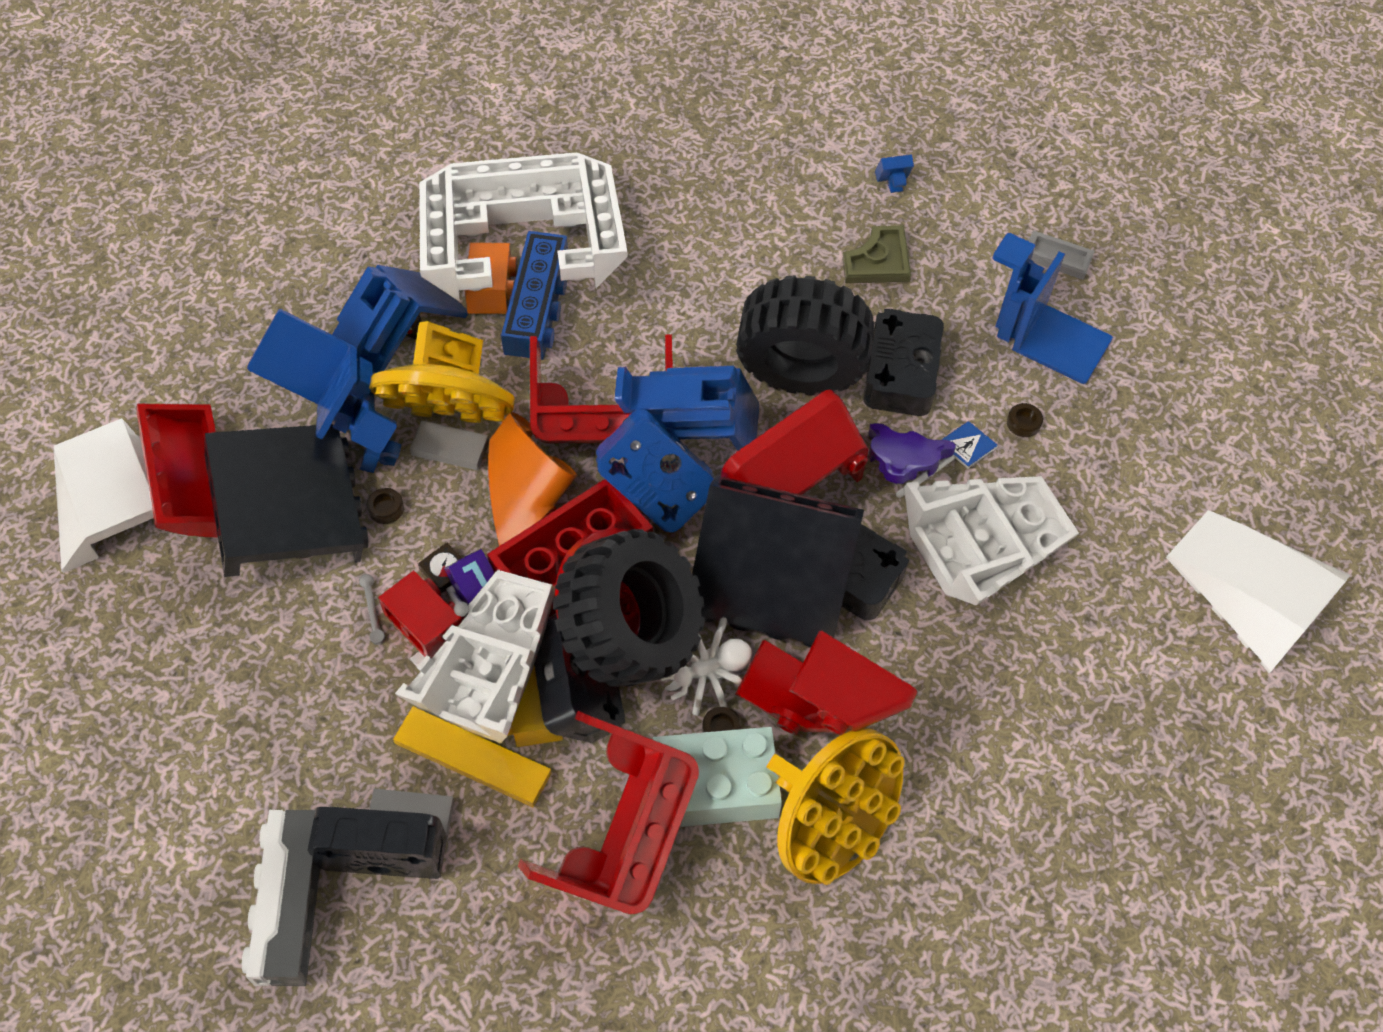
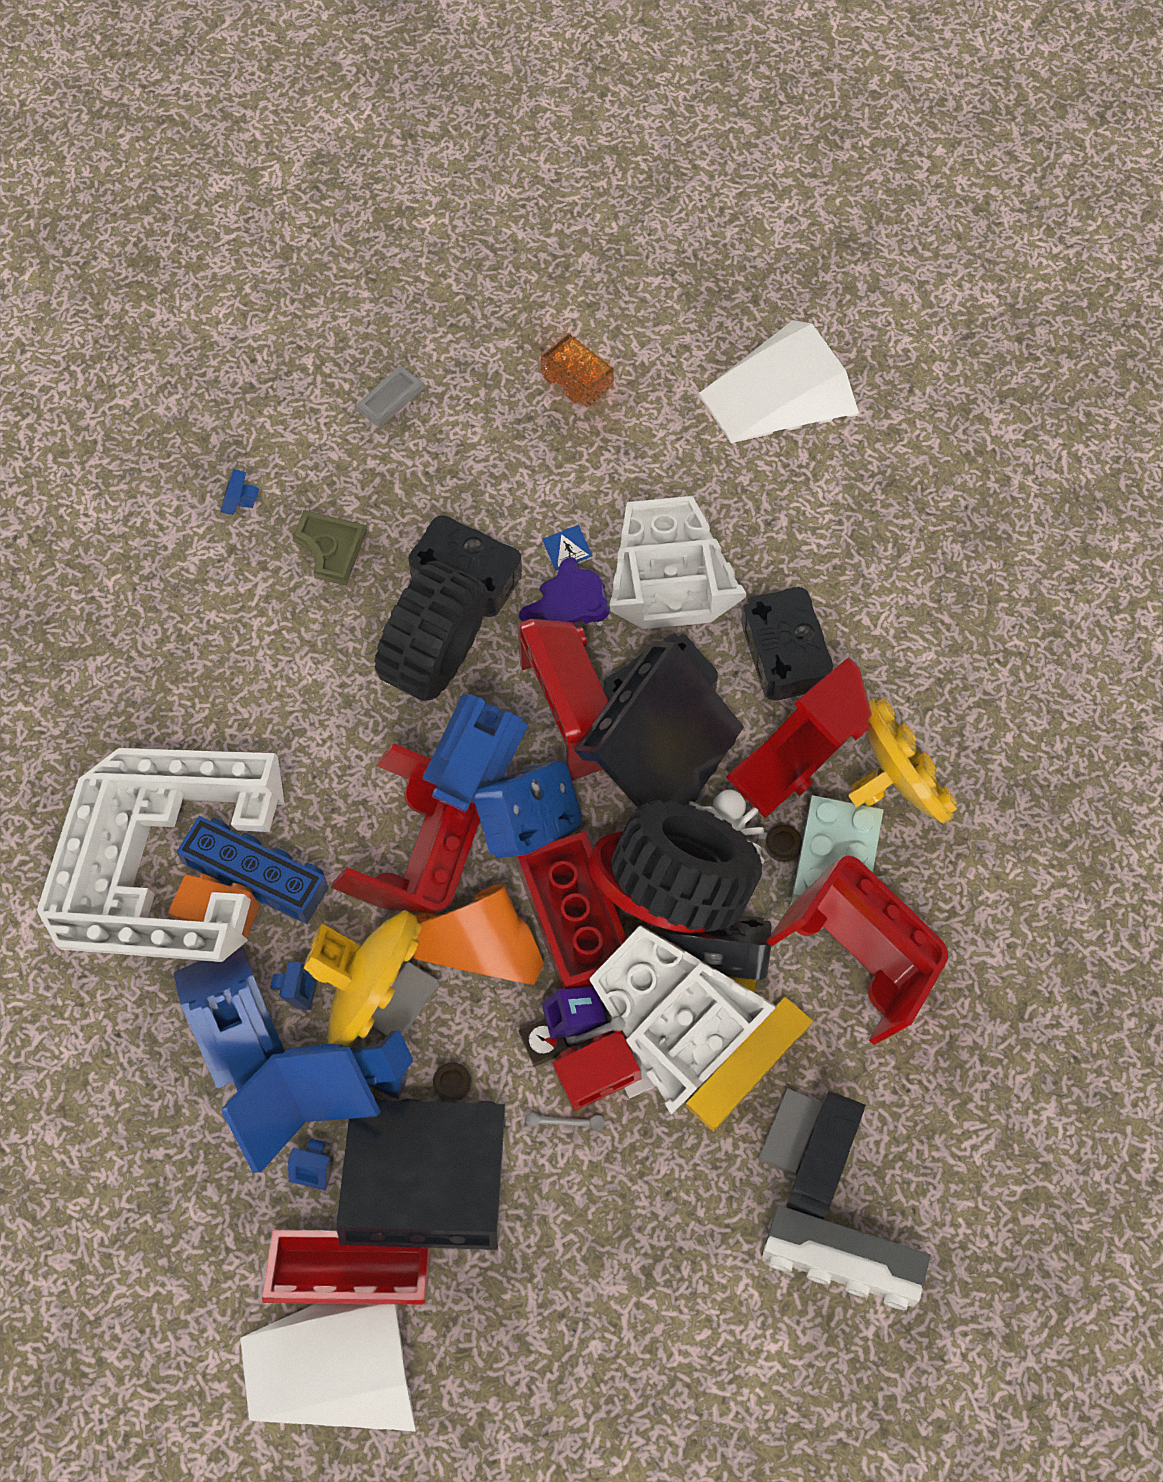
camera: 70 degrees left, 5 degrees up
(277, 416) = (310, 1166): none -> blue tile
(943, 654) = (779, 643): none -> black axle
(1024, 420) = (559, 493): dark brown tile -> none
(1037, 328) = (468, 437): blue piece -> none
(1169, 391) = (577, 370): none -> clear orange brick

